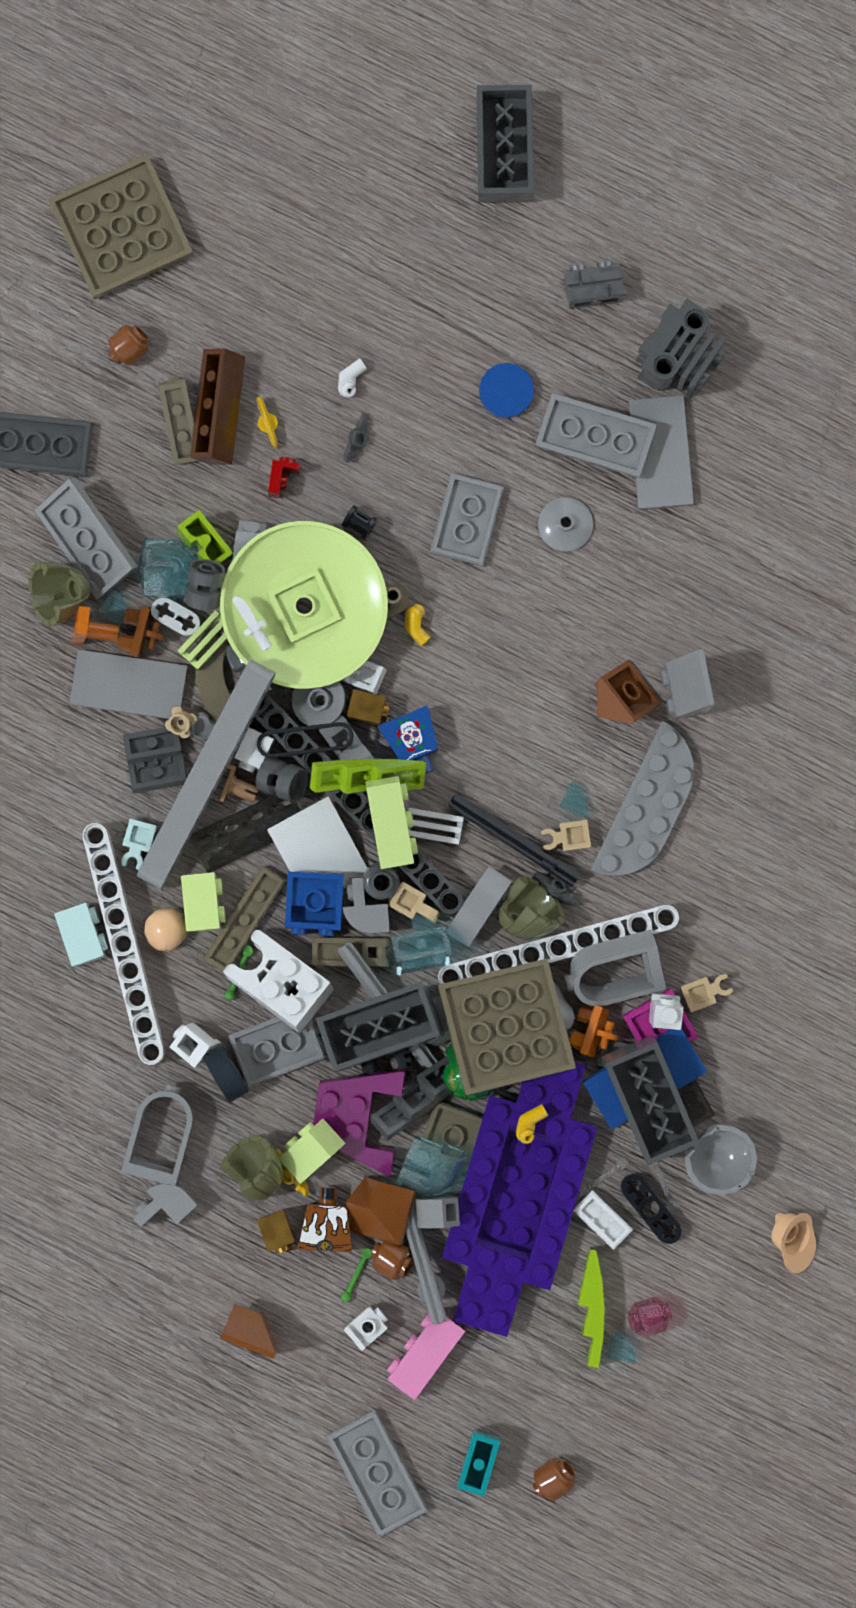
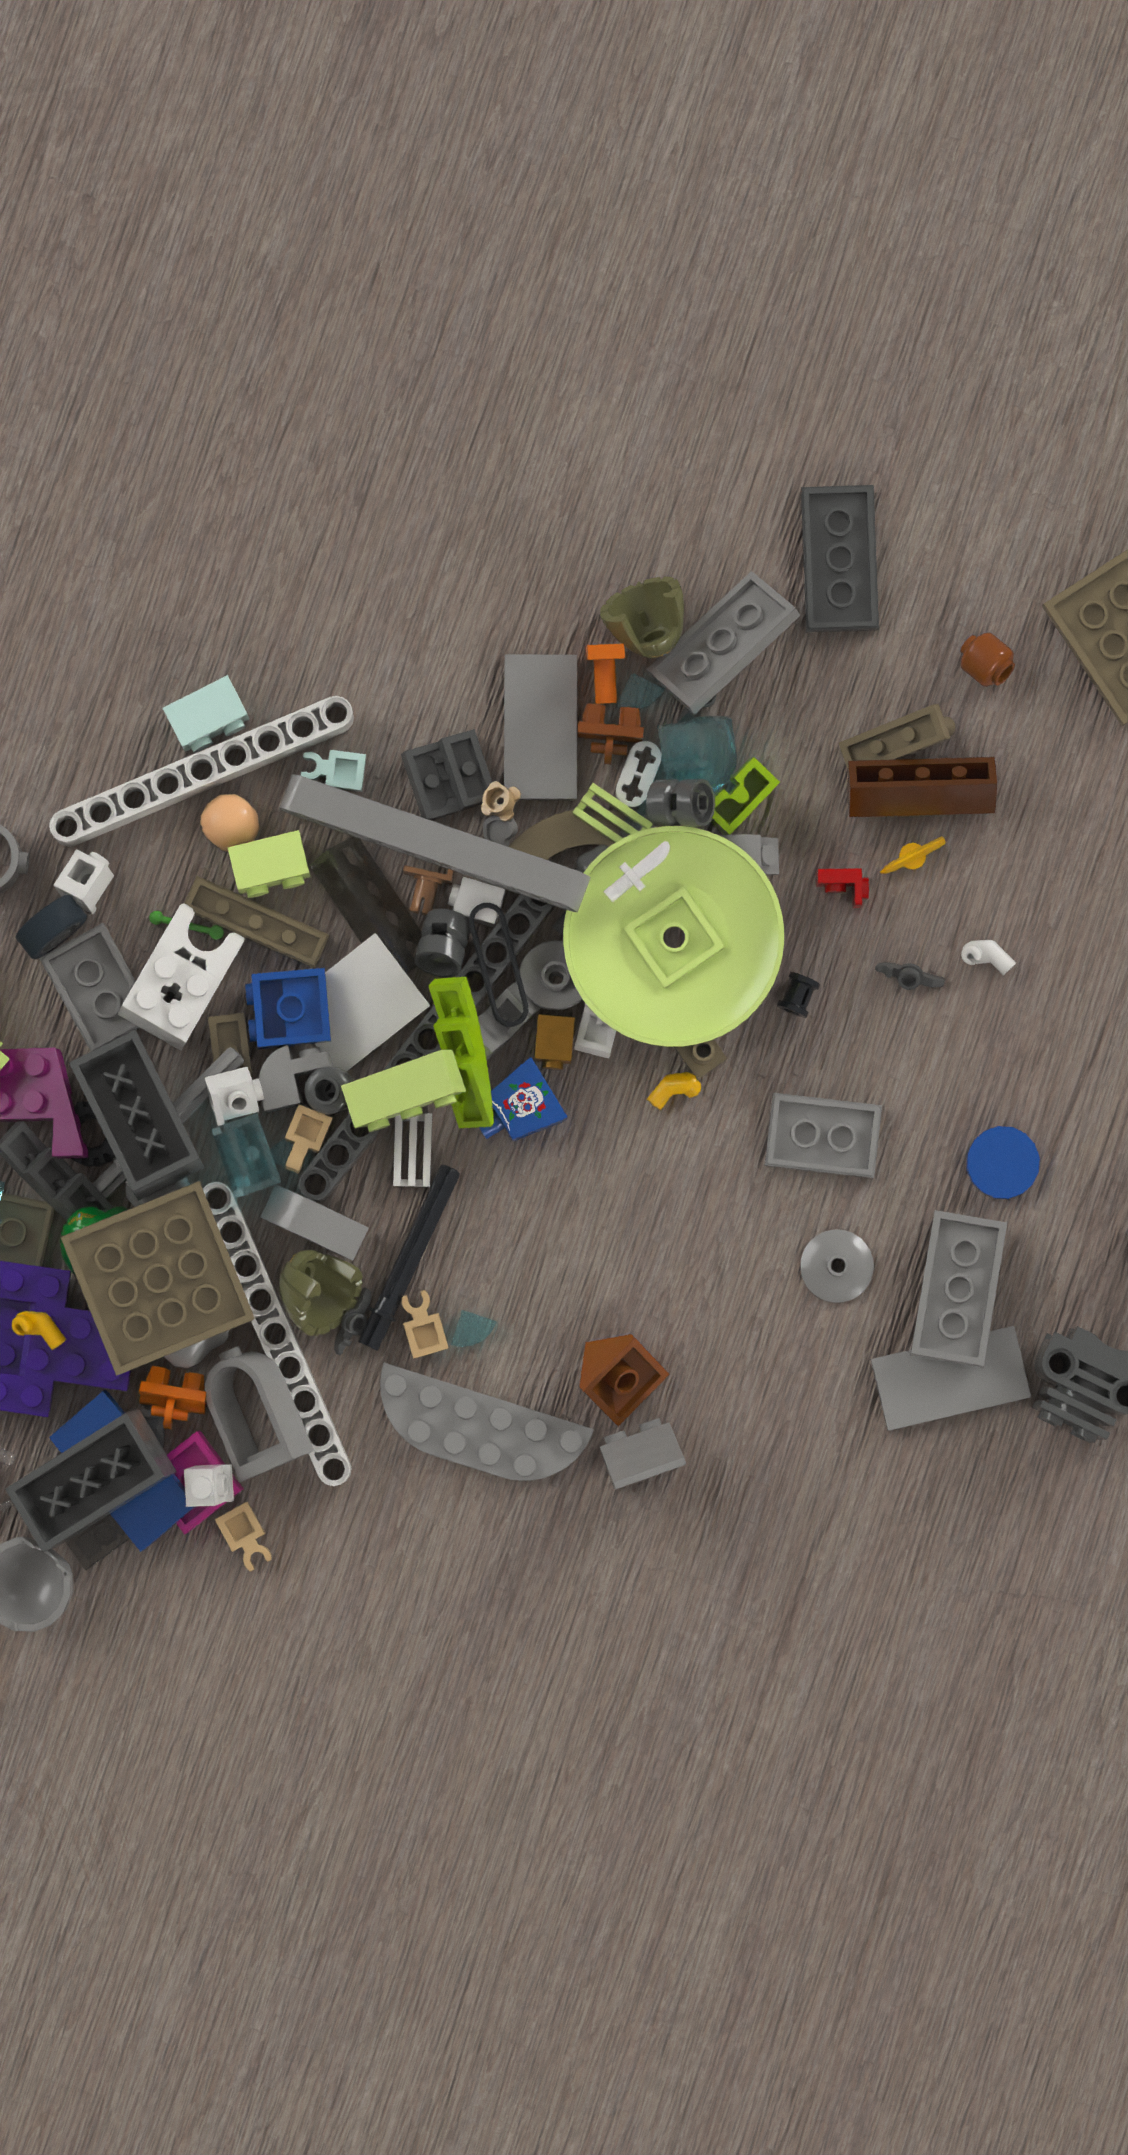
camera: 75 degrees right, 0 degrees up
(374, 952) = (233, 1094): none -> white brick

